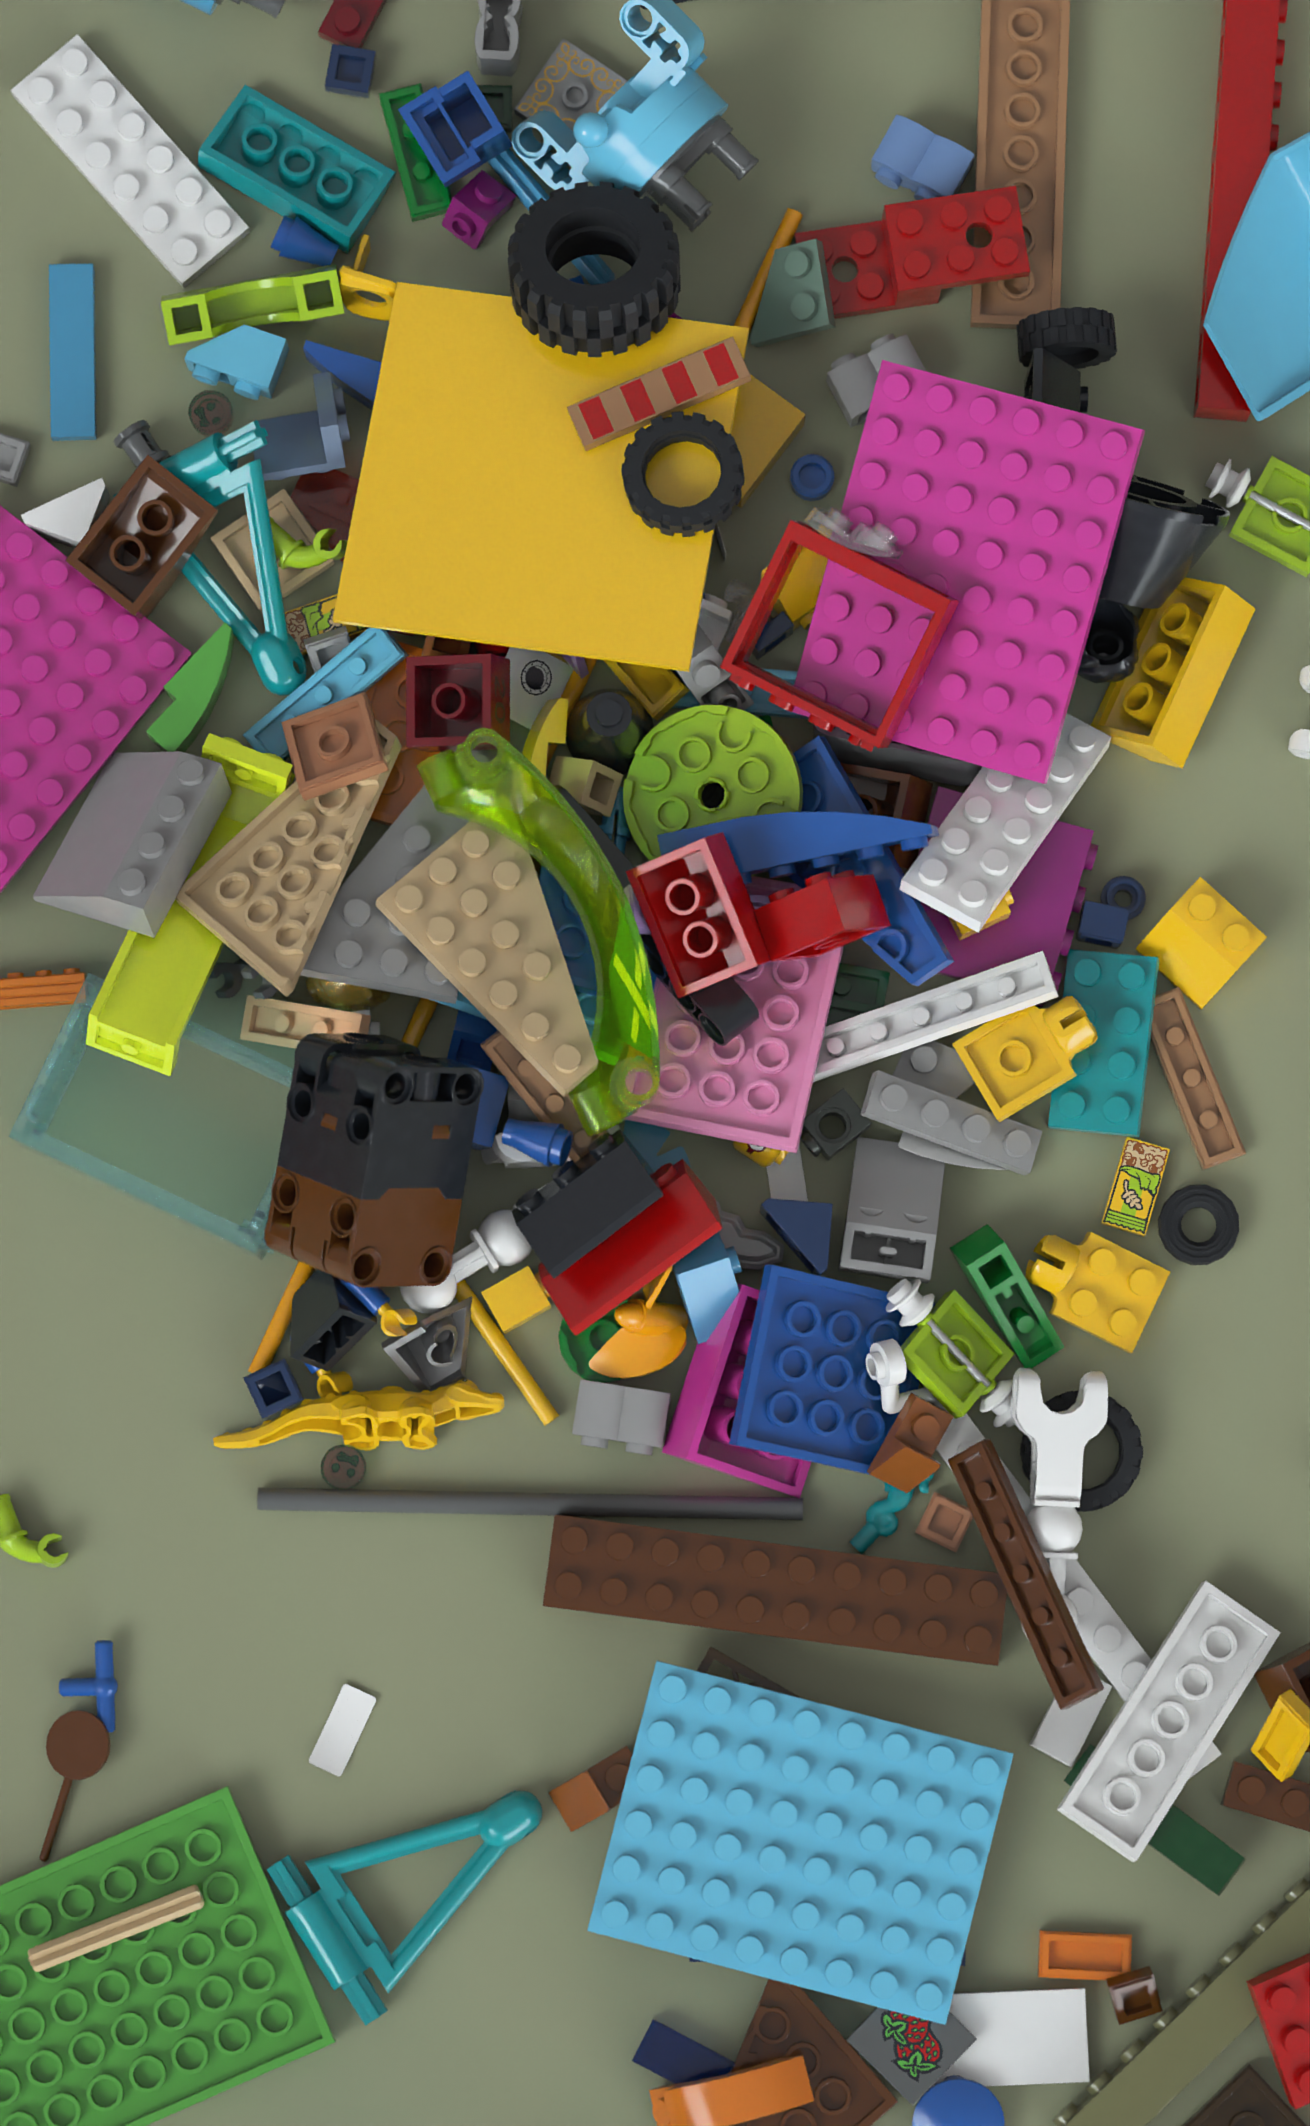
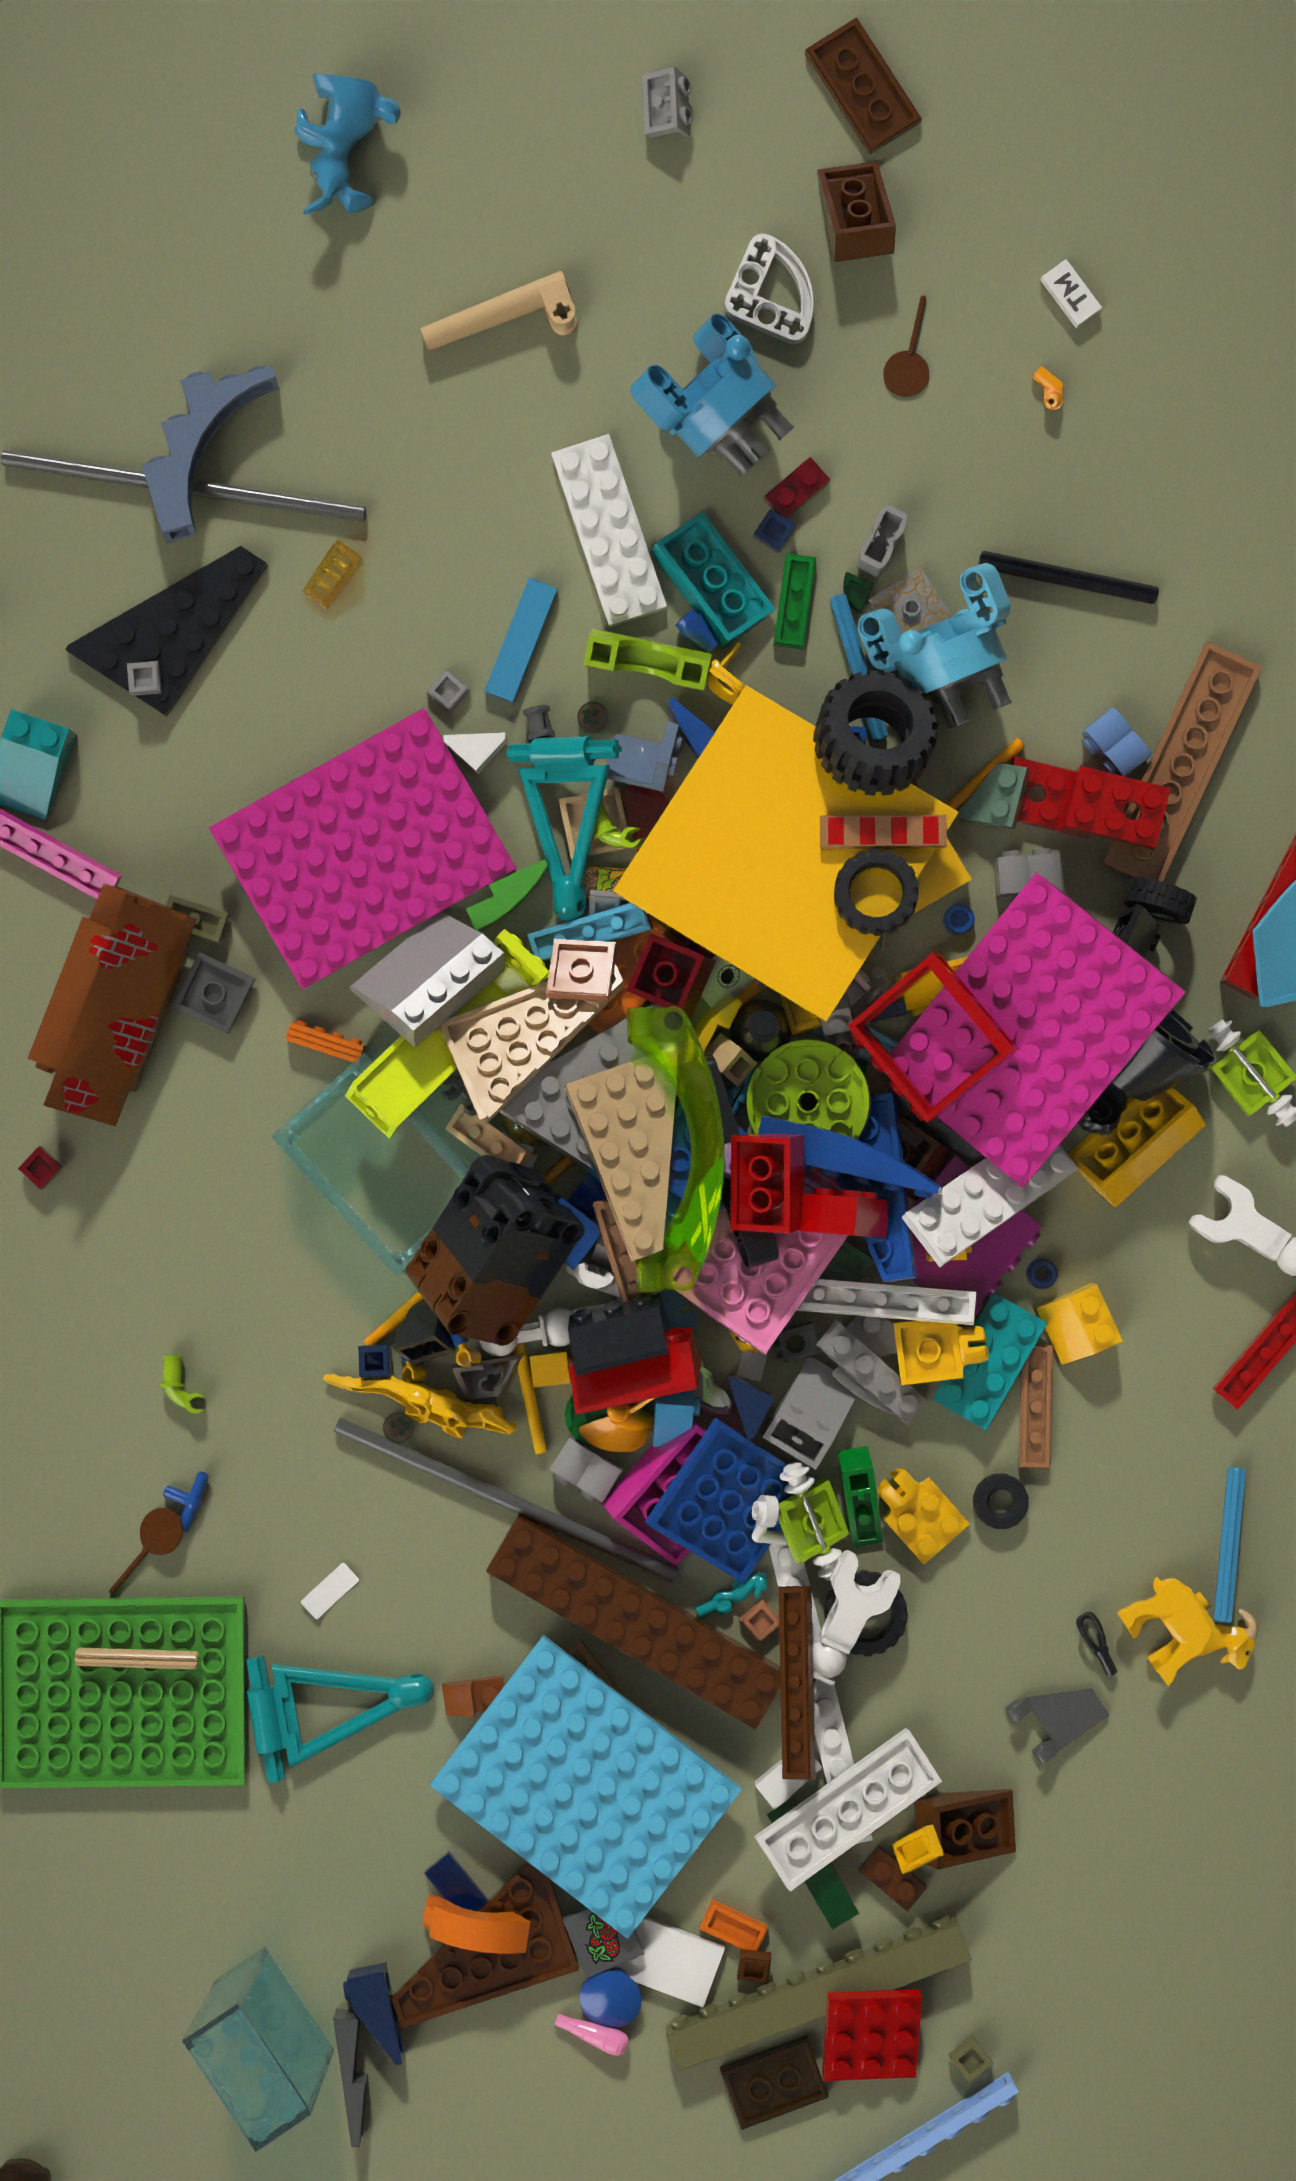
camera: 25 degrees right, 5 degrees up
(143, 538) = (514, 783): reddish brown slope -> none
(241, 358) = (627, 691): medium azure slope -> none
(455, 128) = (825, 599): blue plate -> none
(477, 209) = (818, 655): magenta bracket -> none
(539, 1140) = (605, 1280): blue cone -> none
(865, 538) = (977, 985): clear slope -> none
(908, 1448) = (756, 1569): dark orange slope -> none
(1102, 924) = (1021, 1286): dark blue slope -> none
(1135, 1186) = (971, 1460): tile -> none

